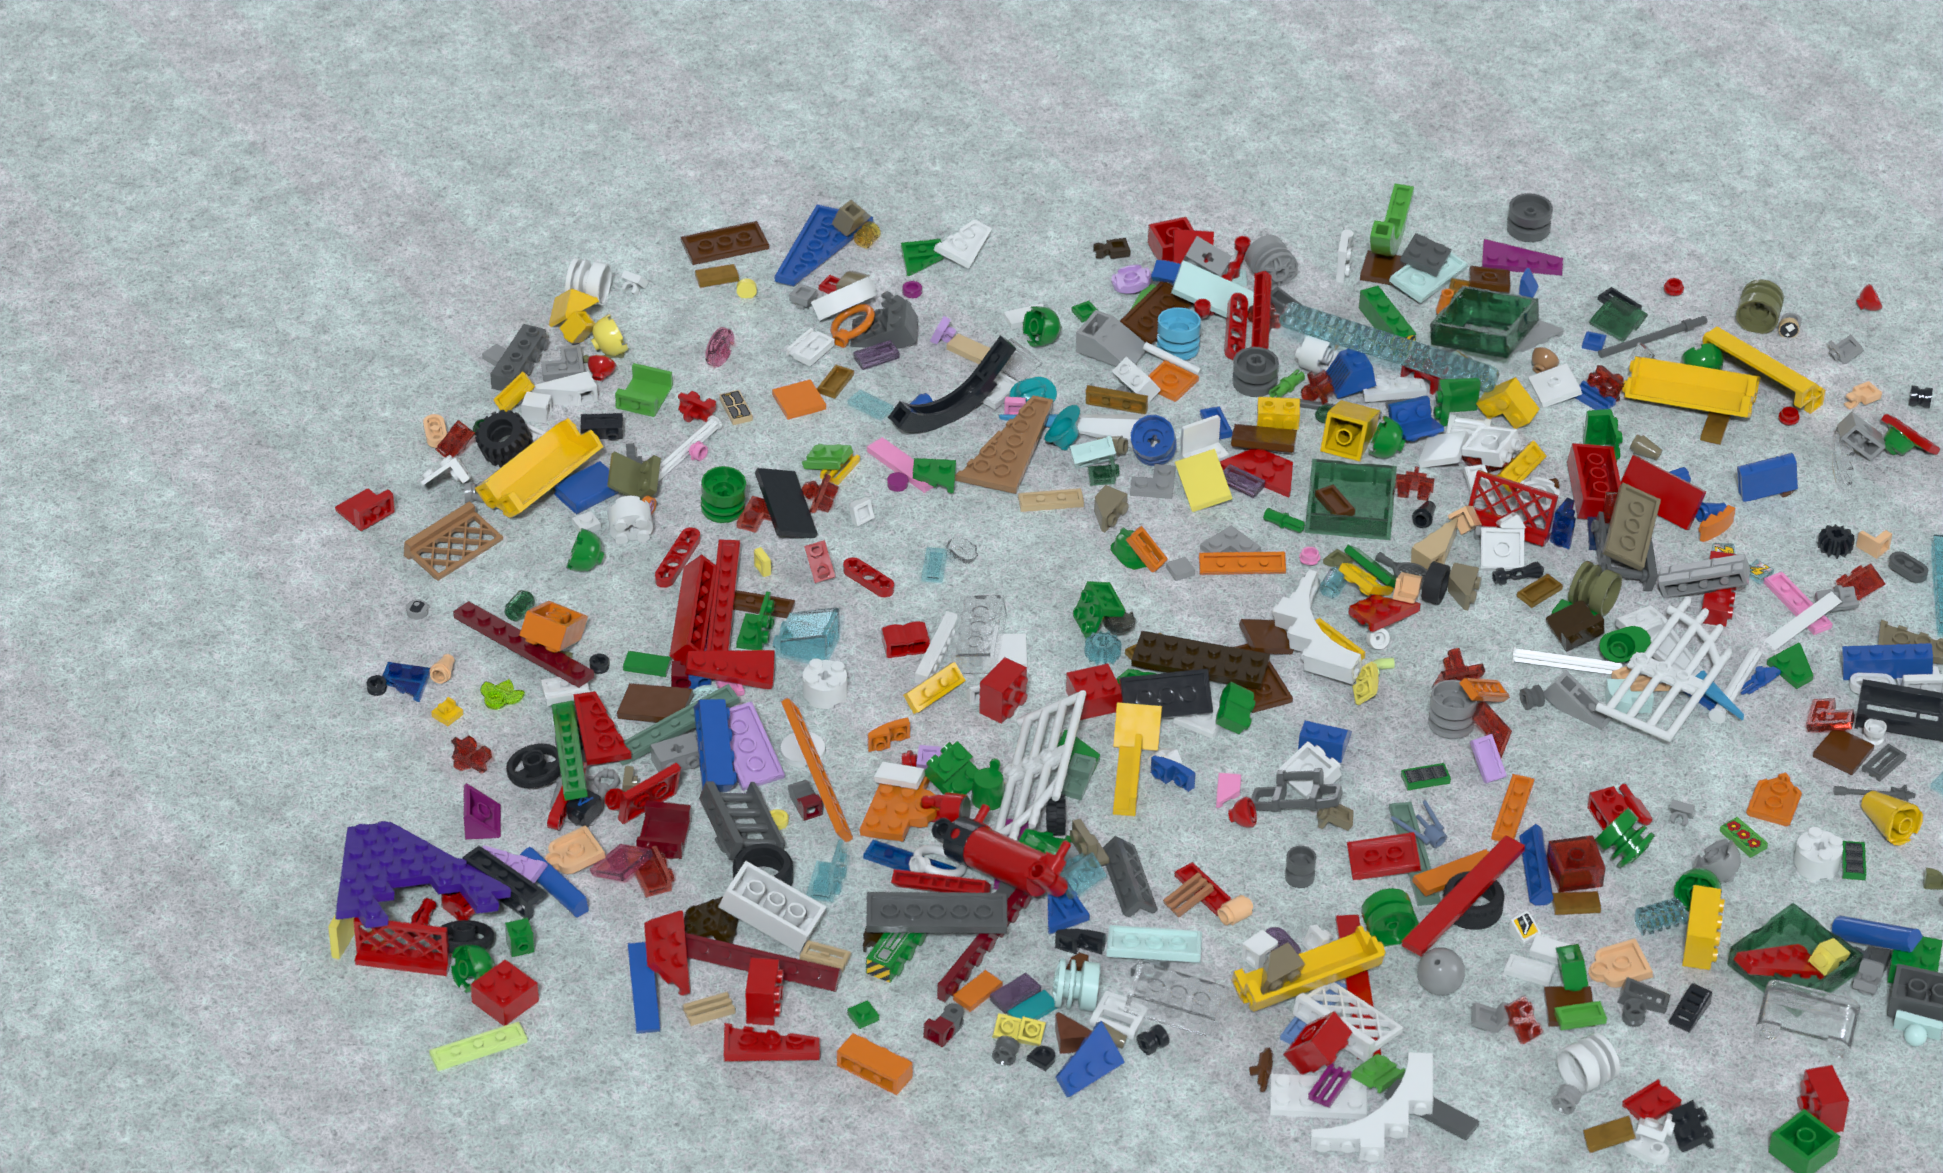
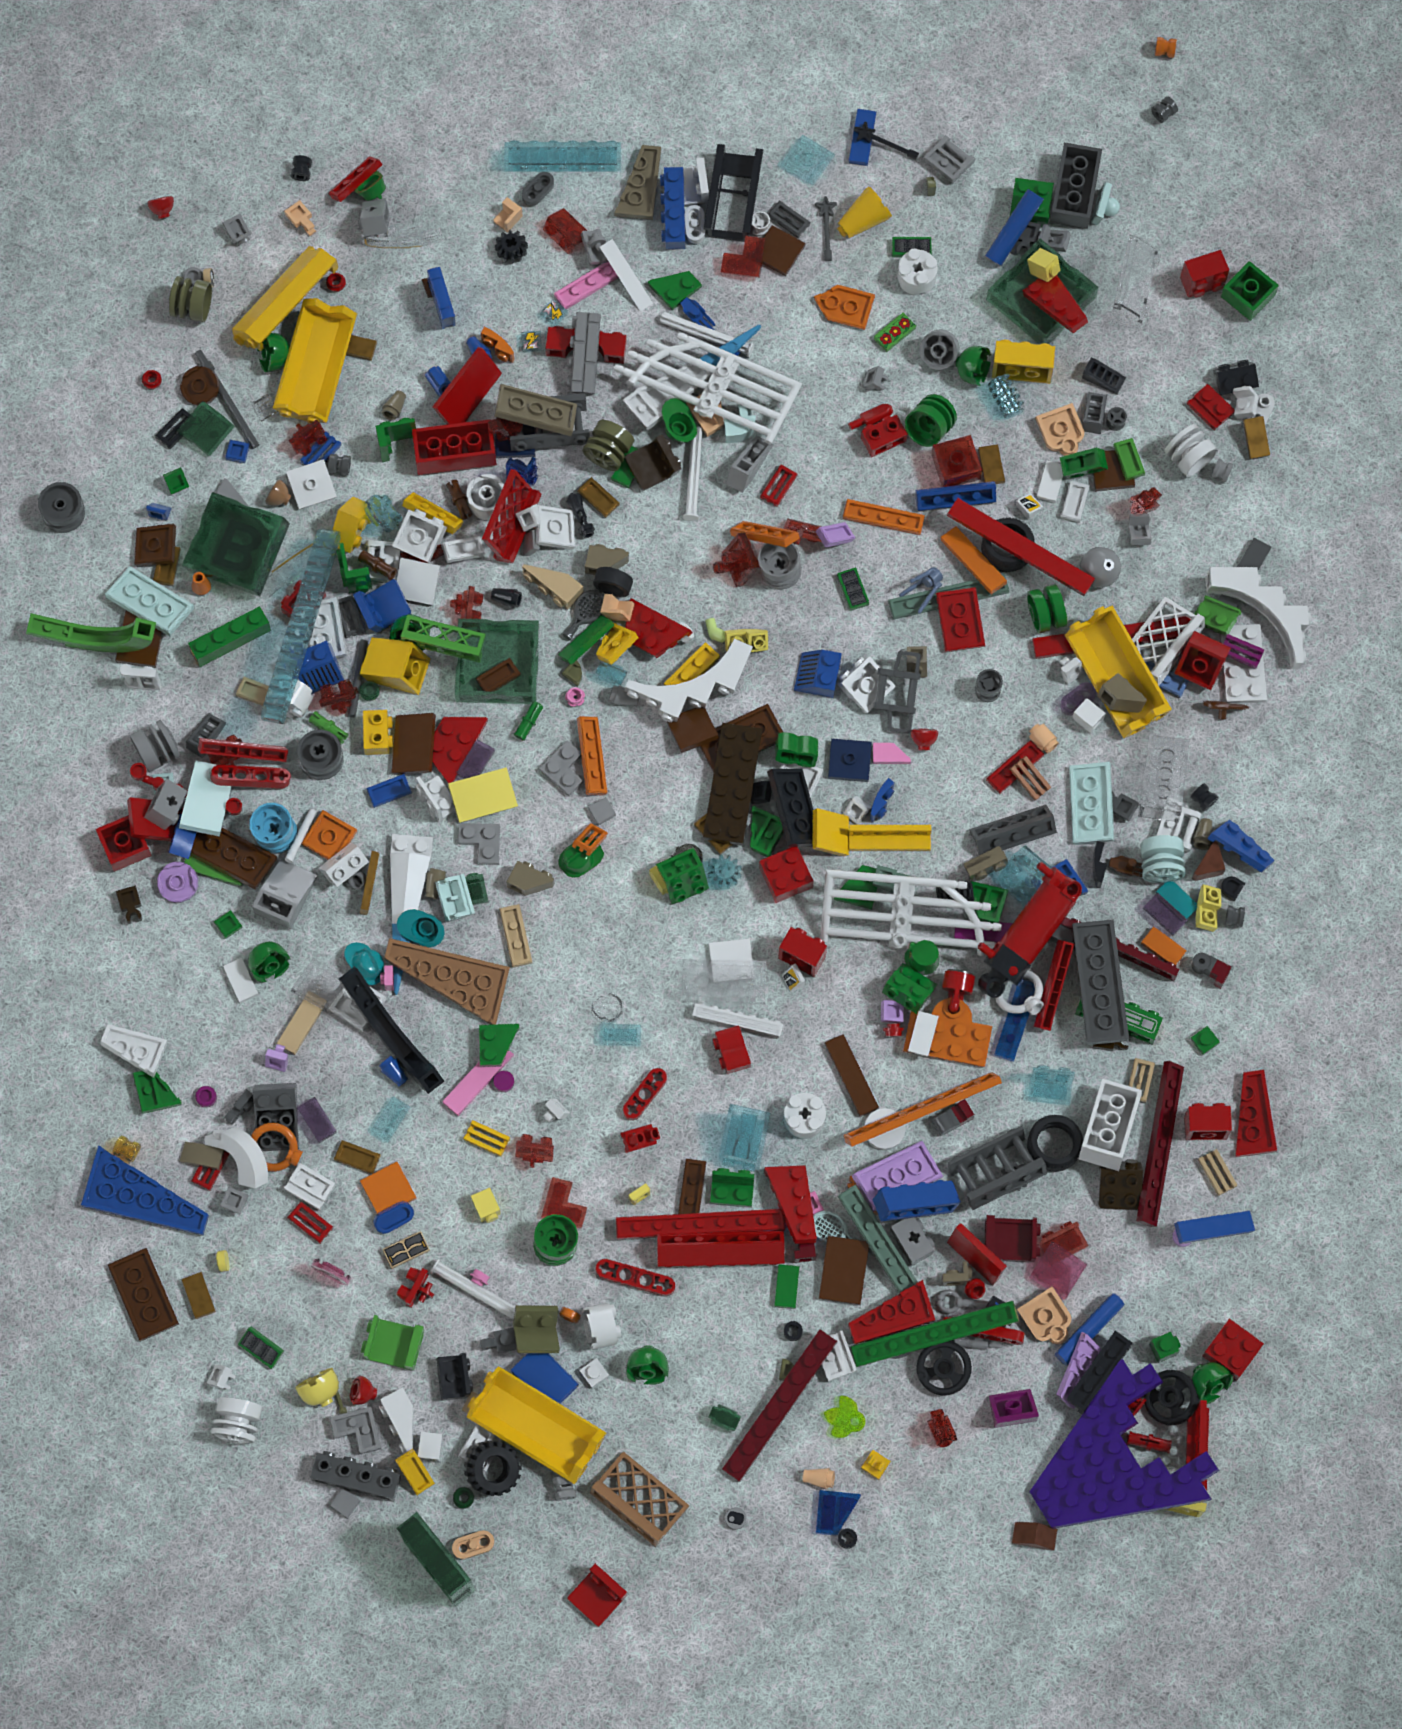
camera: 95 degrees left, 30 degrees up
(339, 820) = (1034, 1535): none -> copper slope
(420, 381) = (436, 1559): none -> clear green tile
(455, 440) = (496, 1519): clear red hips -> none
(458, 470) = (548, 1520): white bracket -> none
(478, 1046) = (1290, 1366): yellowish green tile -> none
(553, 626) = (771, 1372): orange brick -> none
(569, 302) = (281, 1432): yellow slope -> none
(577, 327) = (308, 1420): yellow brick -> none
(658, 309) = (261, 1347): none -> tile
(667, 949) = (1173, 1209): red wing -> none
(769, 398) = (393, 1217): none -> blue tile
(770, 456) = (486, 1205): none -> light yellow brick
(776, 351) = (324, 1233): none -> red tile
(780, 817) = (976, 1139): light yellow tile -> none
(786, 503) = (558, 1179): black tile -> none
(827, 456) = (480, 1149): bright green plate -> none
(850, 217) = (115, 1160): dark tan slope -> none
(857, 730) = (851, 1075): none -> reddish brown tile
(874, 1064) = (1266, 1022): orange brick -> none
(892, 731) = (867, 1058): orange slope -> none
(934, 687) = (794, 1017): yellow plate -> none
(1151, 429) = (444, 839): blue wheel -> none
(1222, 756) = (849, 760): none -> dark blue plate
(1366, 440) = (440, 645): none -> bright green fence
(1426, 255) = (132, 600): dark grey plate -> none
(1460, 417) = (377, 564): none -> reddish brown pin
(1466, 518) = (518, 558): light nougat panel -> none
(1518, 259) = (115, 525): magenta wing -> none
(1525, 414) = (382, 512): none -> clear light blue plate
(1532, 697) = (746, 500): dark grey wheel -> none
(1550, 731) = (770, 499): none -> red tile
(1559, 295) = (176, 480): none -> green plate
(1577, 404) = (339, 464): none -> dark grey wheel
(1666, 316) = (199, 385): none -> reddish brown tile

